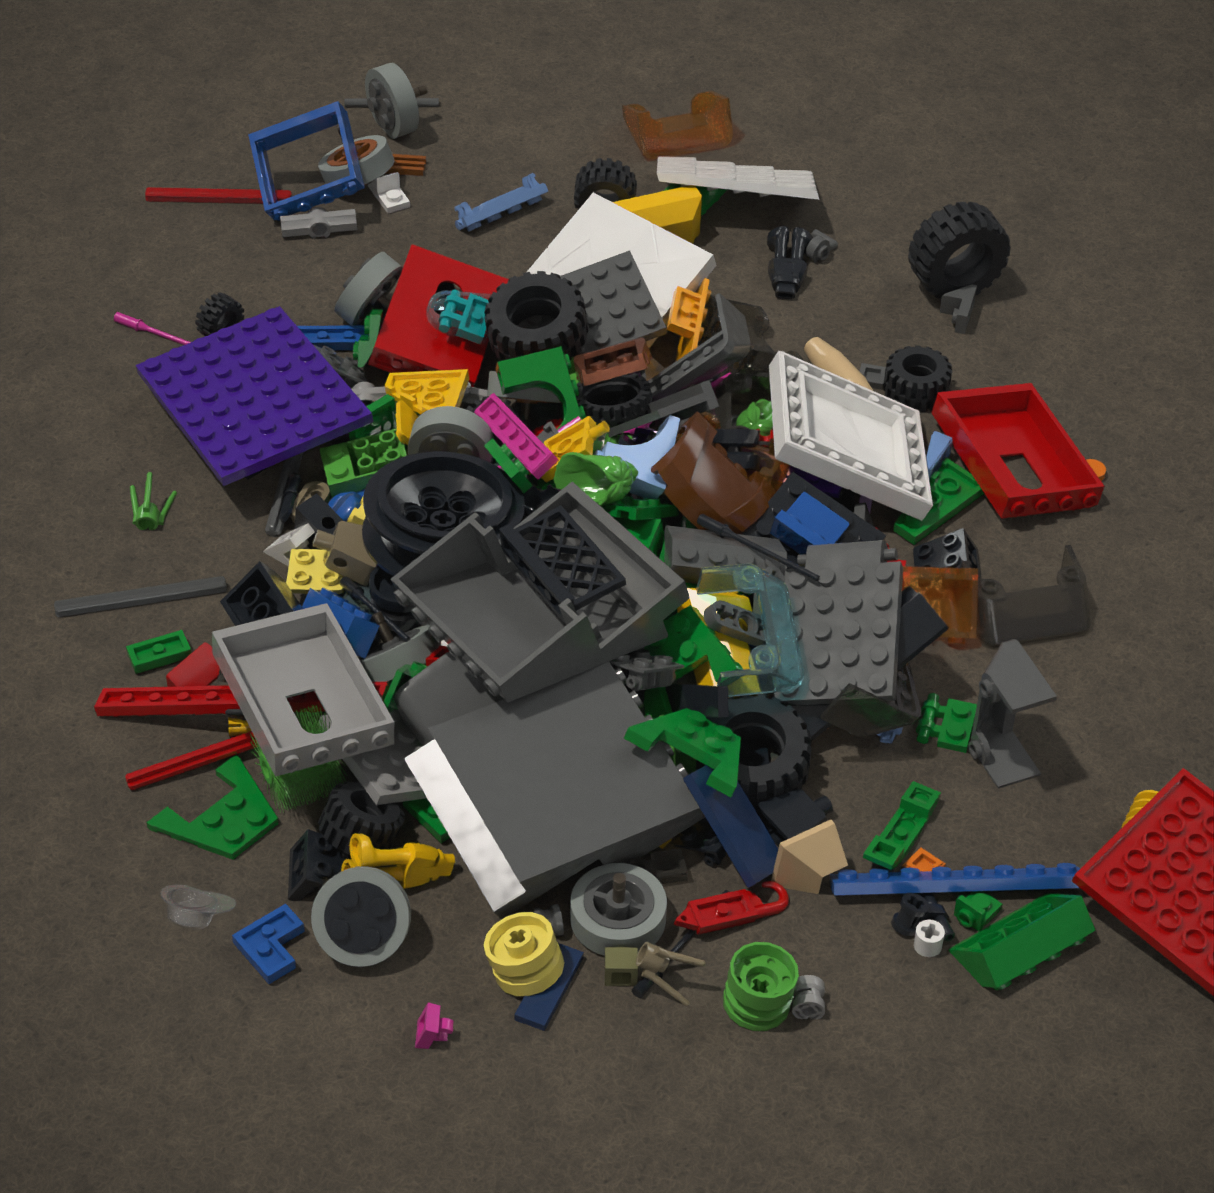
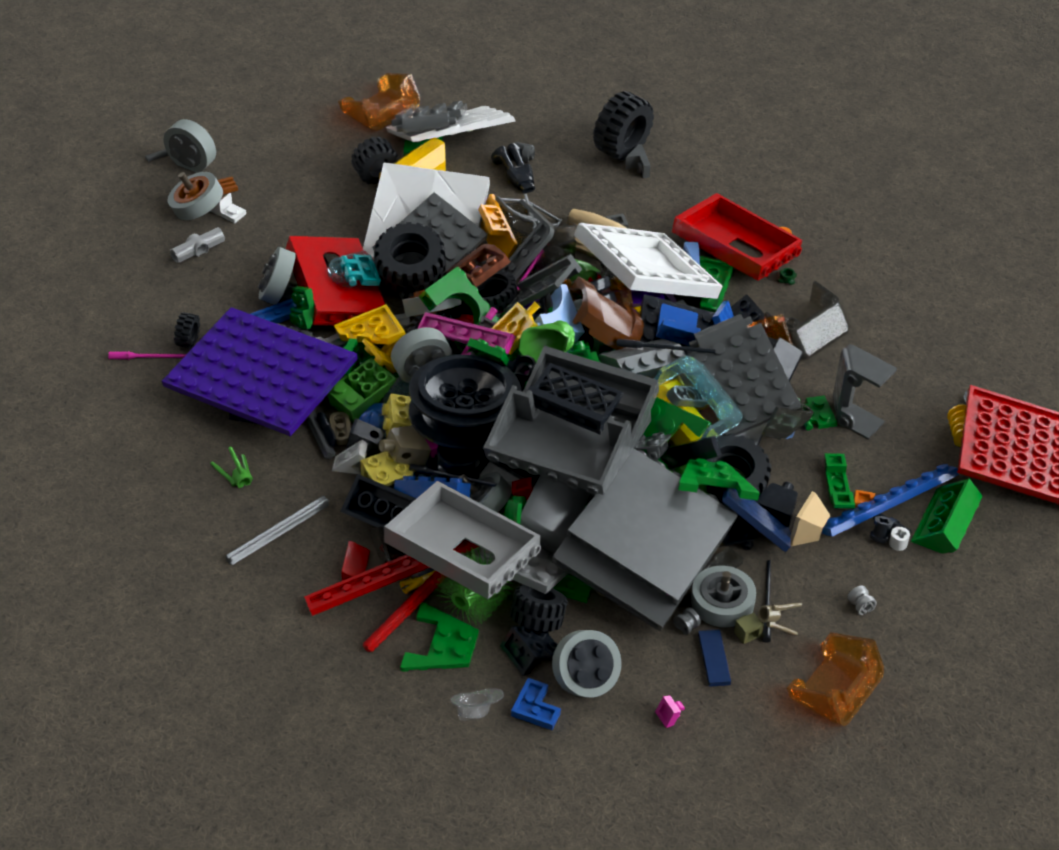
camera: 30 degrees left, 0 degrees up
(158, 651) = (320, 559): green plate -> none
(208, 195) = (110, 250): red axle -> none
(295, 129) = (152, 184): blue window -> none
(414, 861) = (587, 618): yellow piece -> none
(511, 201) = (310, 190): medium blue piece -> none
(524, 954) = (694, 644): light yellow wheel -> none
(692, 1095) = (842, 680): none -> clear orange windscreen
(704, 157) = (428, 118): none -> dark grey plate
(730, 909) = (782, 569): red plate -> none
(756, 313) = (526, 218): none -> dark grey piece
(760, 986) = (836, 604): bright green wheel -> none
(909, 542) = (723, 313): none -> blue tile
(917, 376) = (649, 212): black tyre -> none
(976, 909) = (910, 512): green bracket -> none
(1053, 528) = (787, 275): none -> dark green plate

